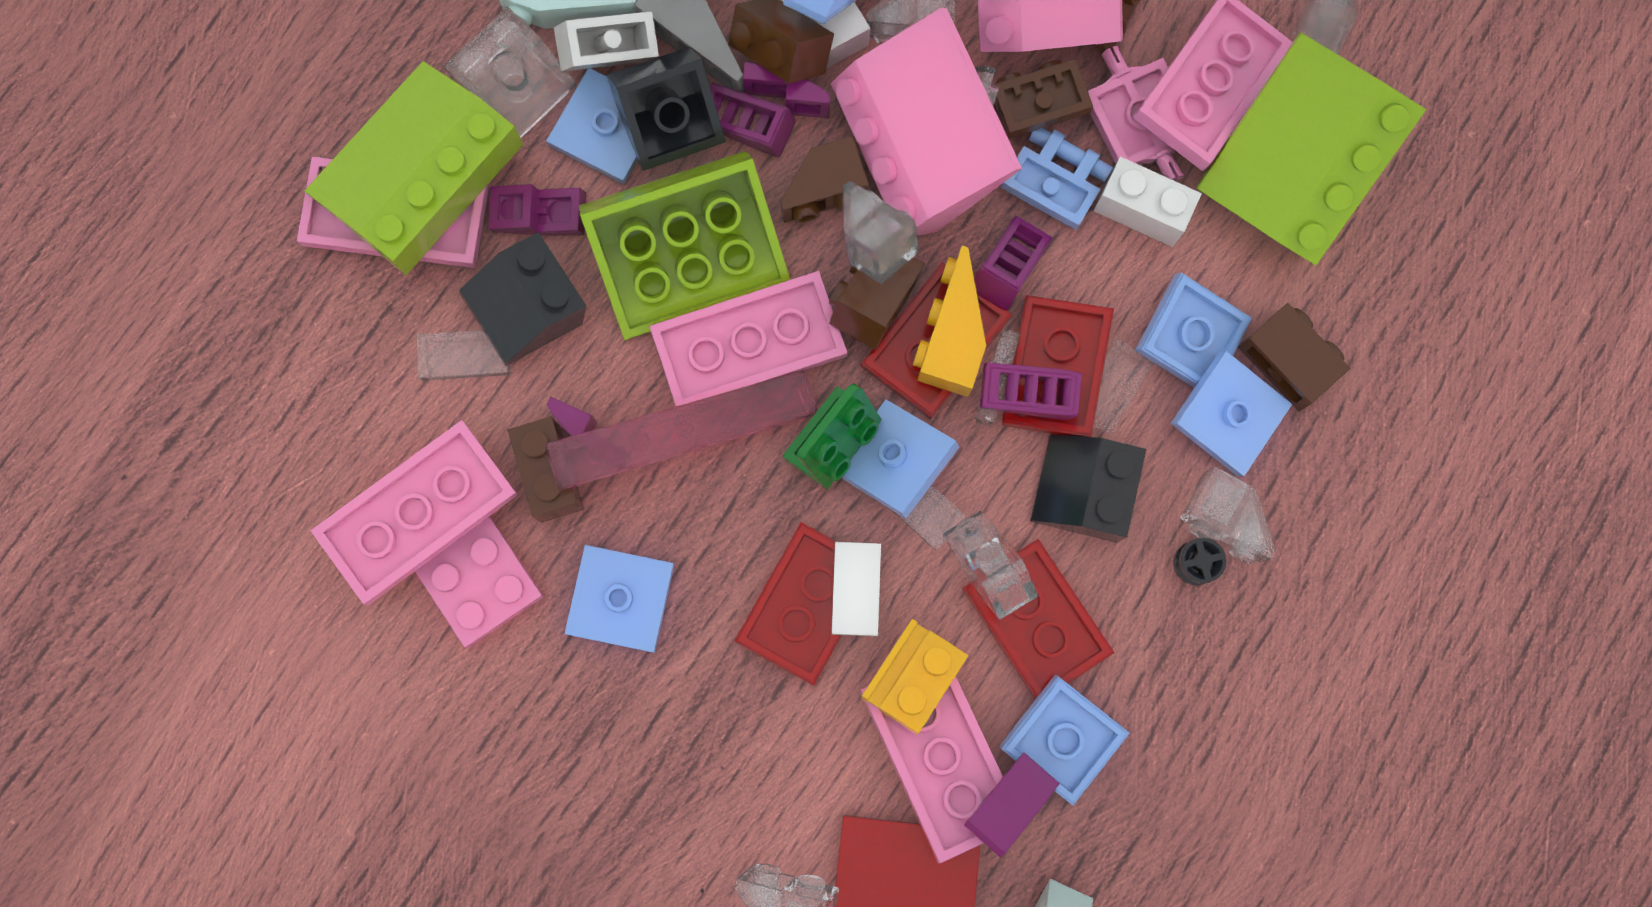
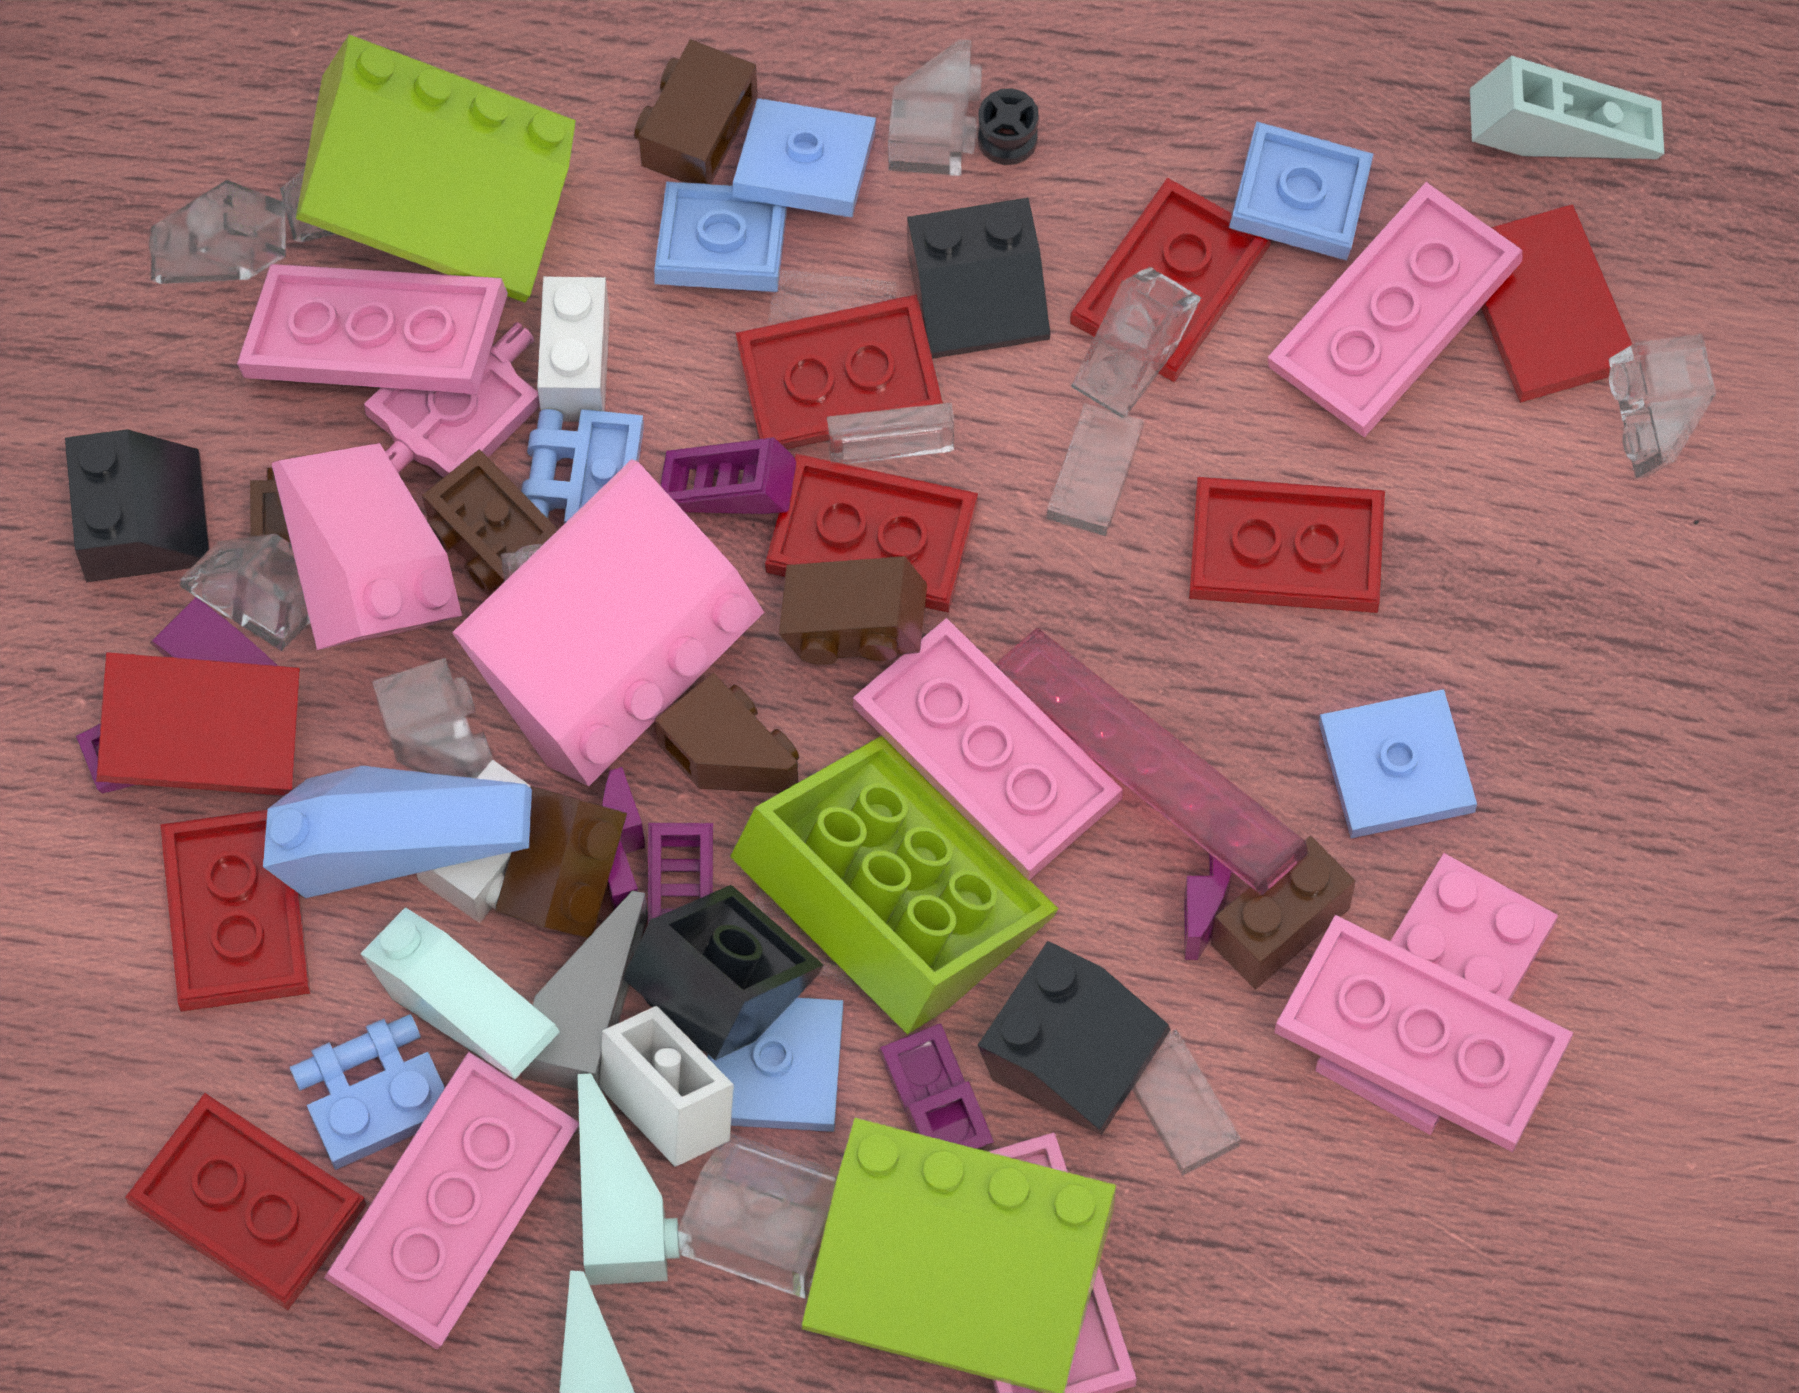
camera: 110 degrees left, 15 degrees down
(834, 436) = (1065, 585): green bracket -> none
(856, 589) = (1243, 483): white tile -> none
(876, 234) = (784, 625): clear slope -> none
(900, 460) = (1055, 505): light blue plate -> none
(914, 677) = (1317, 370): yellow plate -> none
(958, 336) = (864, 491): yellow slope -> none
(1011, 804) = (1419, 195): magenta slope -> none
(1068, 391) = (888, 334): magenta slope -> none

